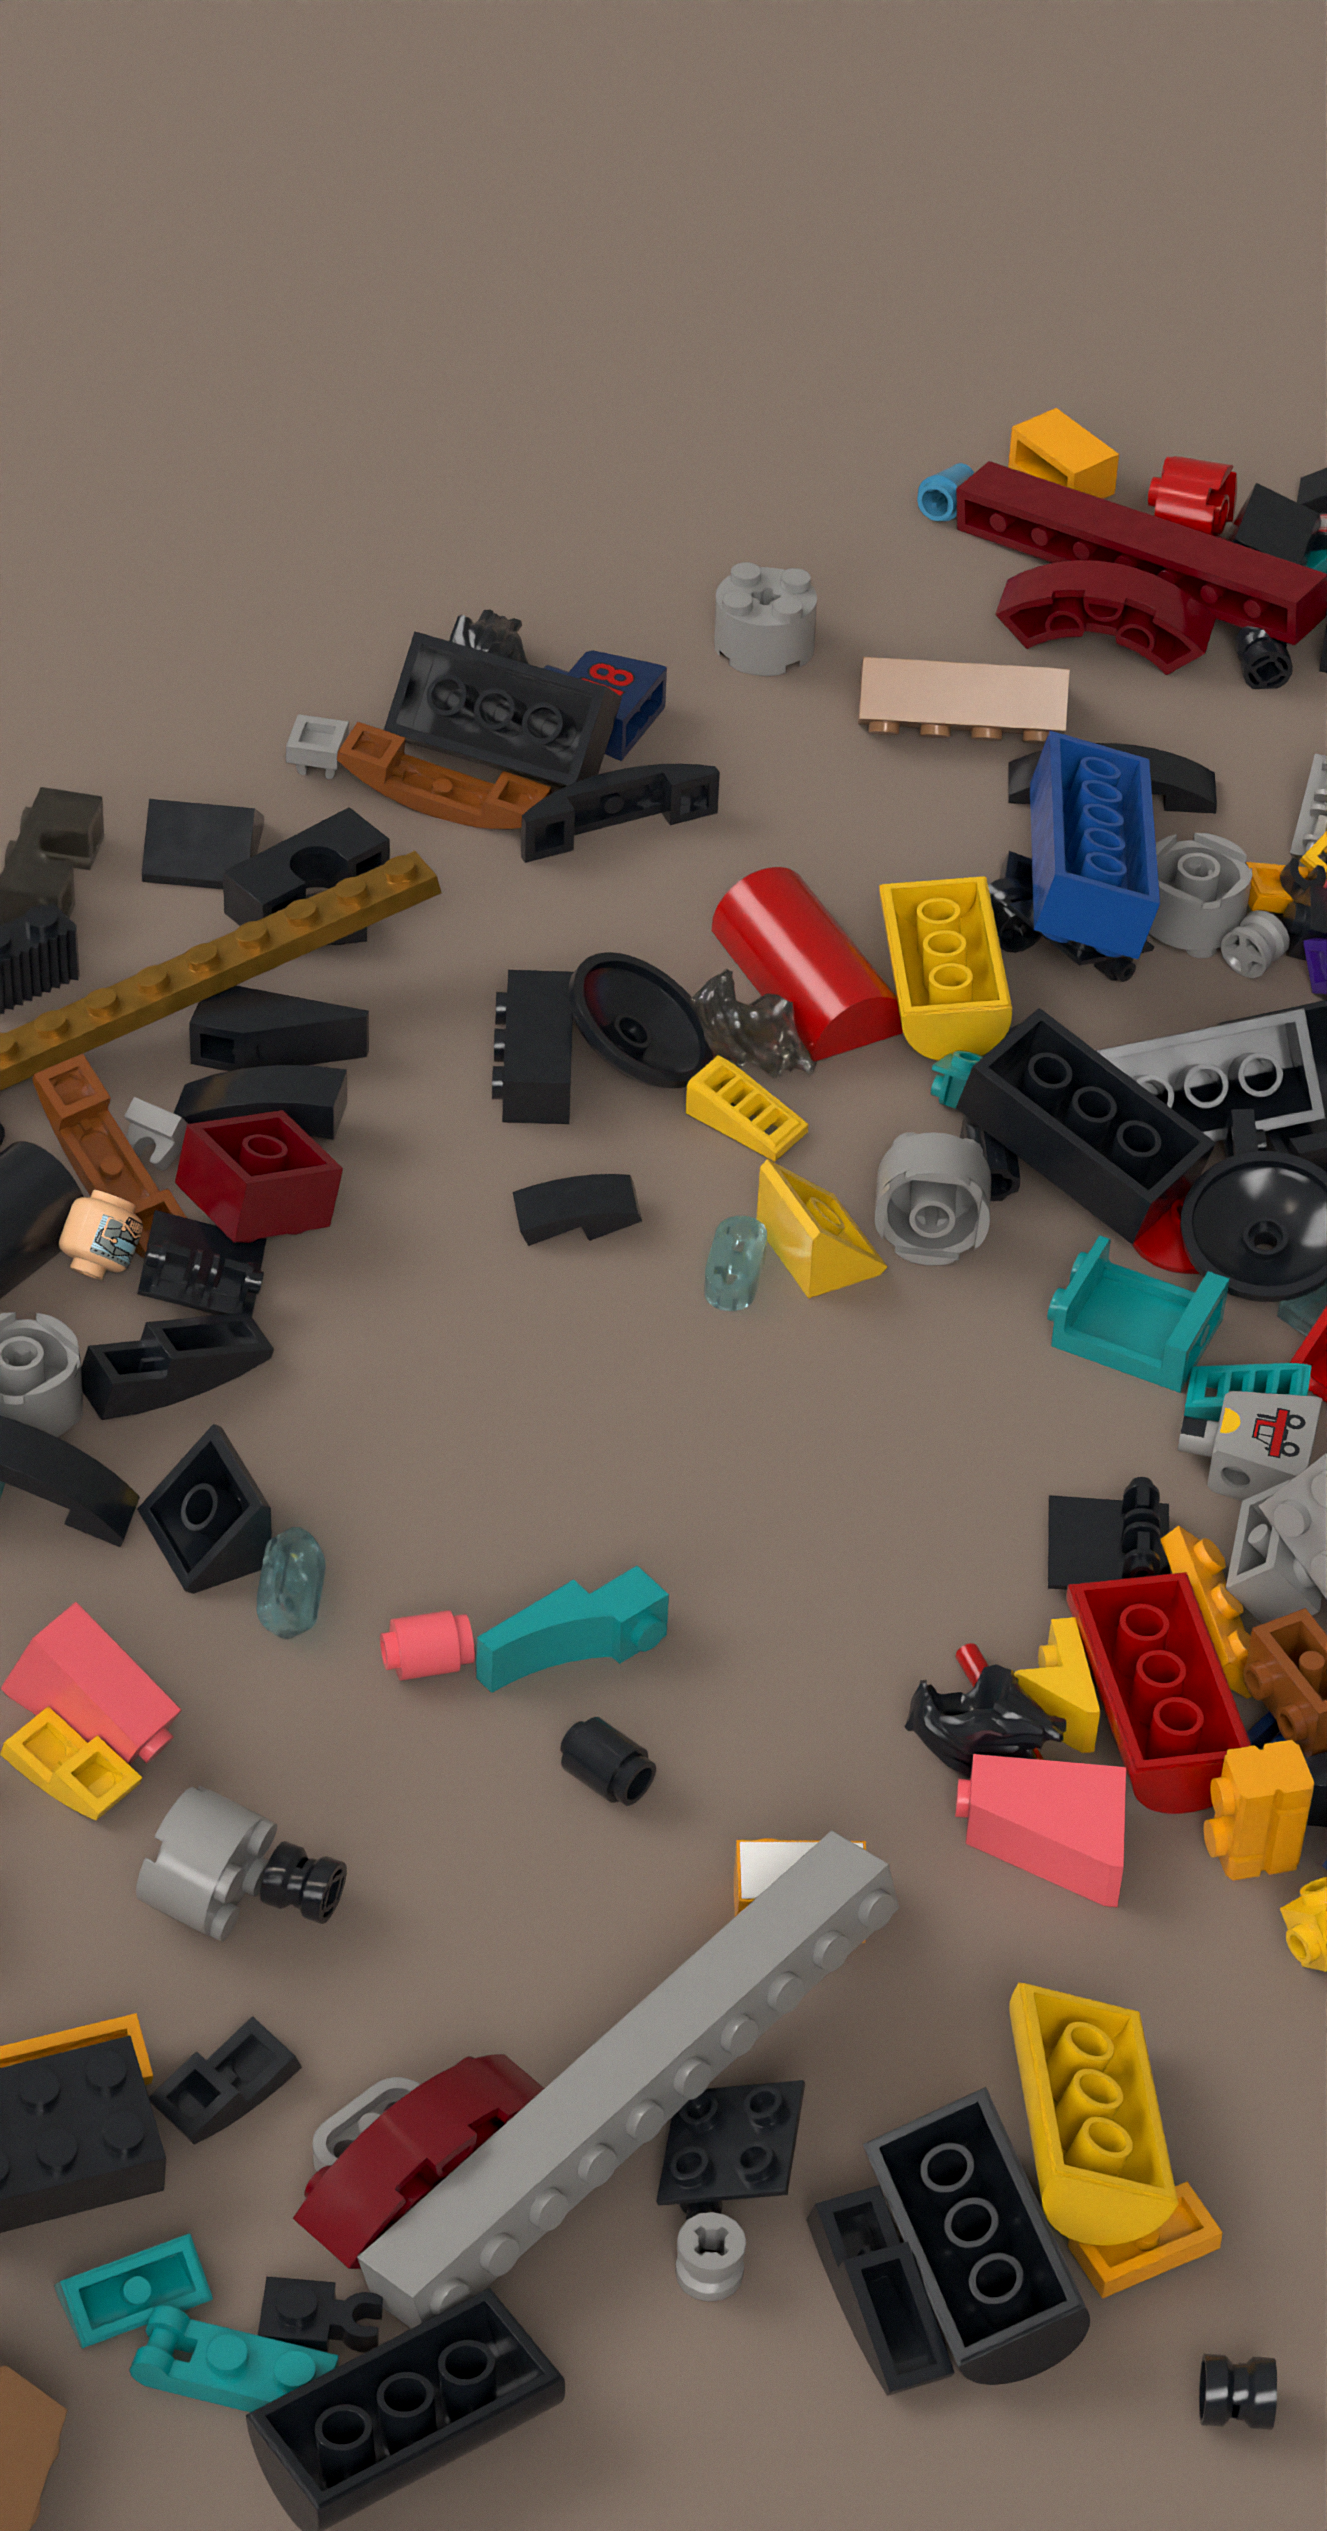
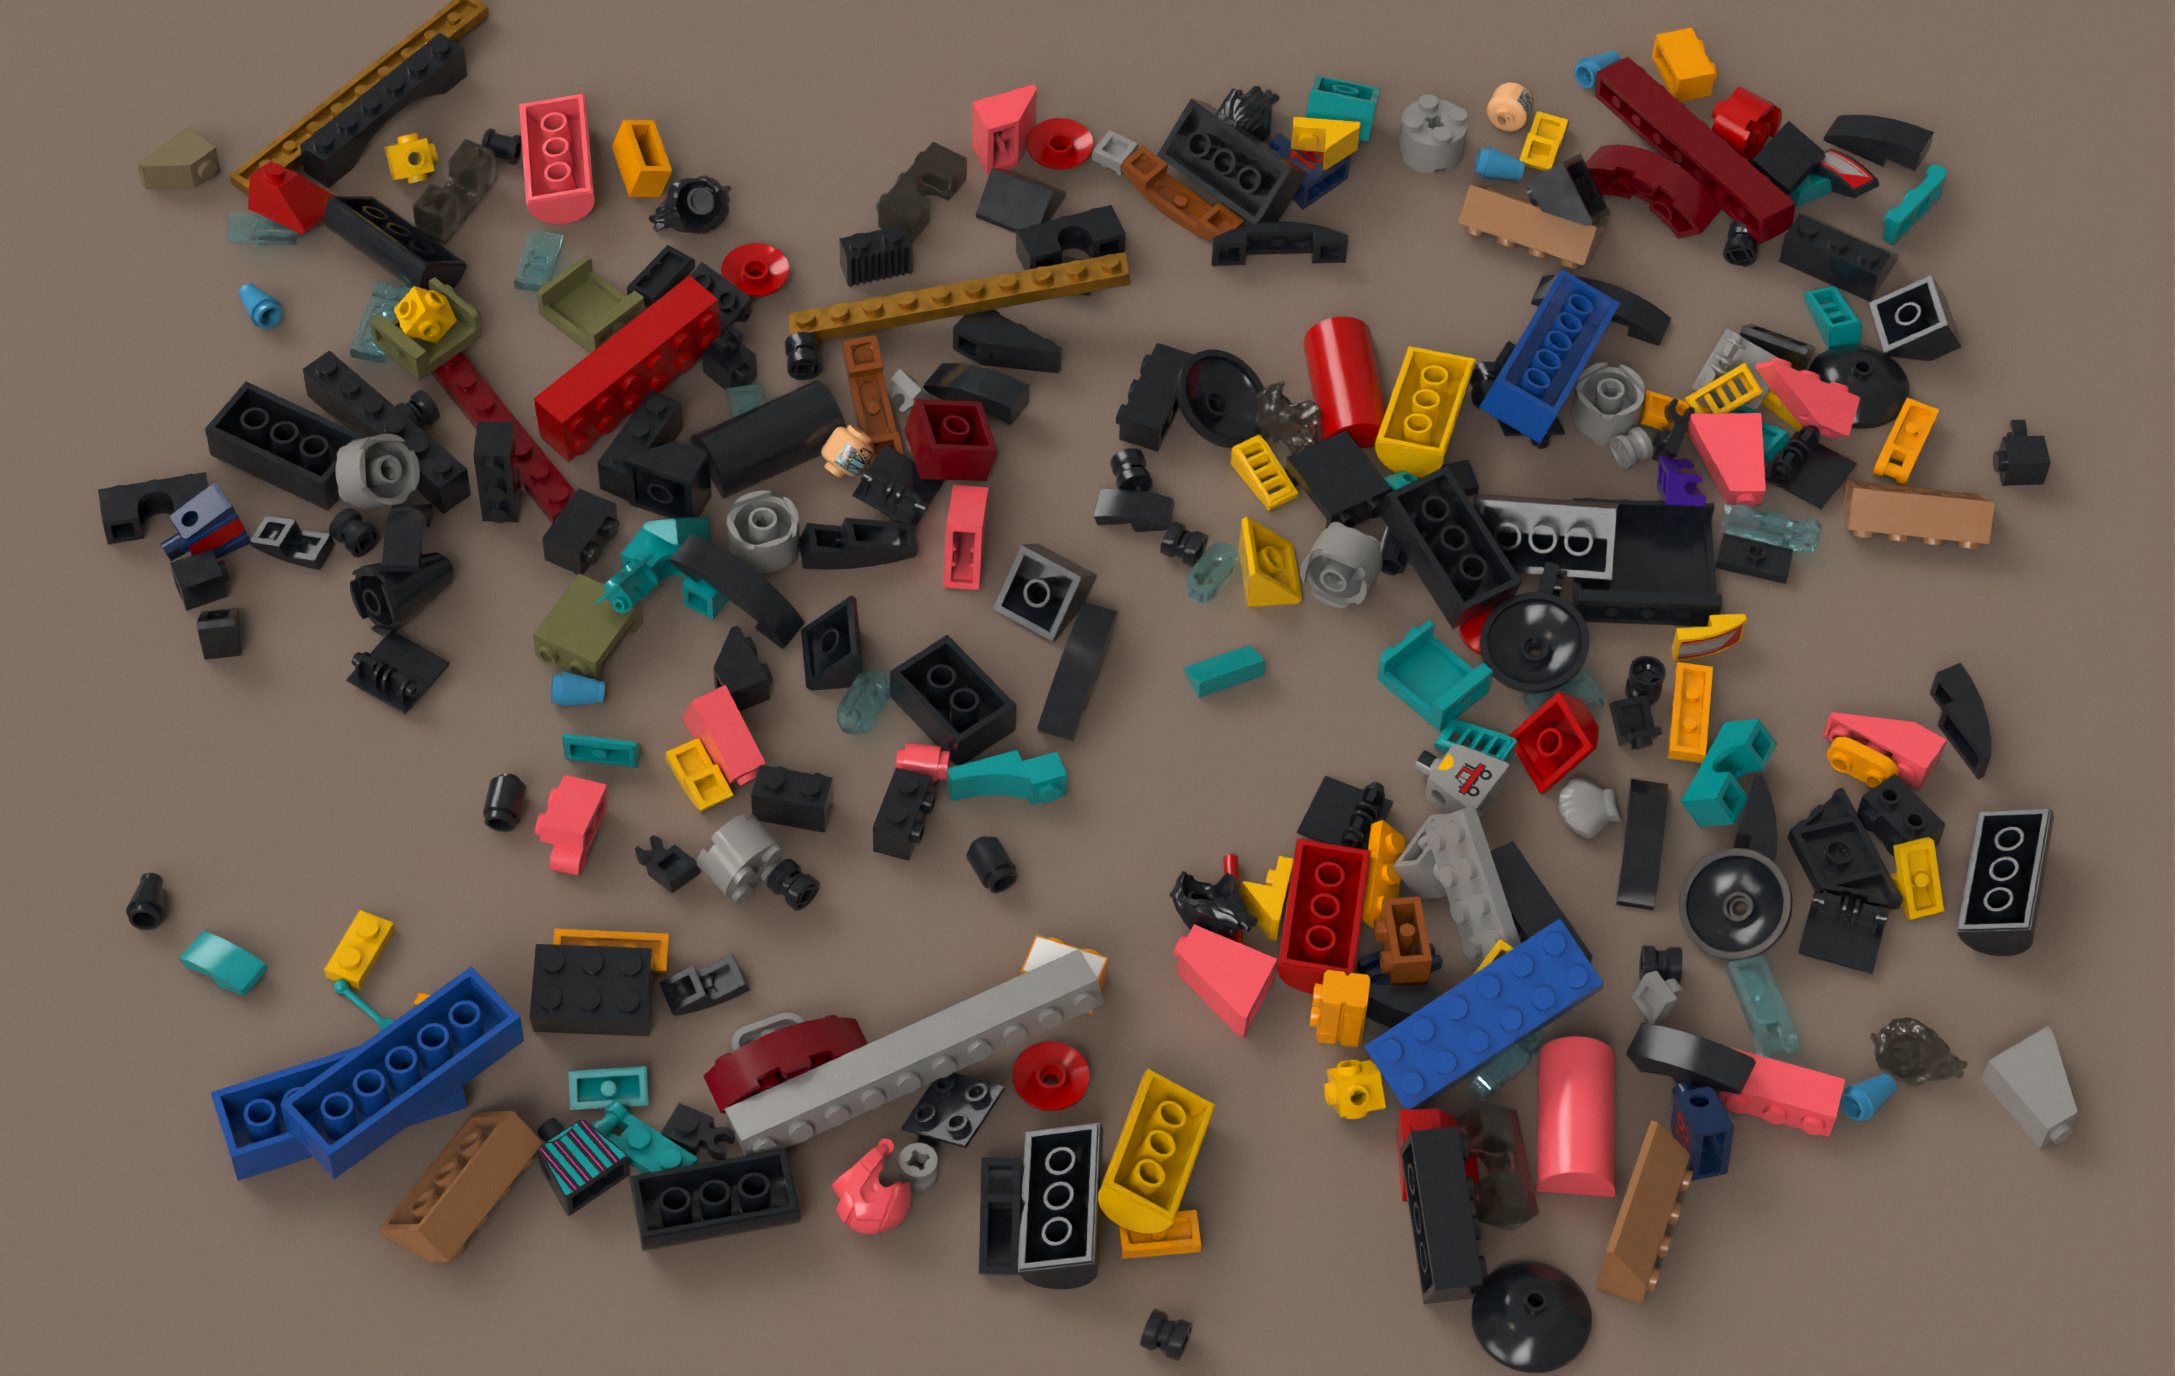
camera: 20 degrees right, 10 degrees up
(69, 1575) = (742, 671): none -> black slope
(84, 1916) = (668, 867): none -> black plate
(136, 746) = (1003, 126): none -> coral slope
(141, 2425) = (579, 1162): none -> black torso
(228, 752) = (1060, 143): none -> red dish
(246, 1750) = (792, 798): none -> black brick
(342, 1306) = (965, 537): none -> coral slope
(433, 1728) = (903, 814): none -> black brick
(435, 1538) = (953, 700): none -> black brick
(497, 1352) = (1043, 590): none -> black slope
(544, 1149) = (1130, 469): none -> black wheel
(605, 1450) = (1077, 671): none -> black slope
(625, 610) = (1344, 101): none -> teal brick
(628, 643) = (1332, 137): none -> yellow slope
(654, 2330) = (863, 1200): none -> coral helmet
(691, 1235) = (1184, 543): none -> black wheel
(825, 1391) = (1225, 670): none -> teal slope
(853, 562) = (1510, 107): none -> light nougat head
(858, 2030) = (1050, 1062): none -> red dish
(866, 1086) = (1339, 480): none -> black panel
(873, 637) = (1498, 165): none -> dark azure cone
(920, 596) = (1544, 141): none -> yellow slope
(1002, 634) = (1568, 192): none -> black slope

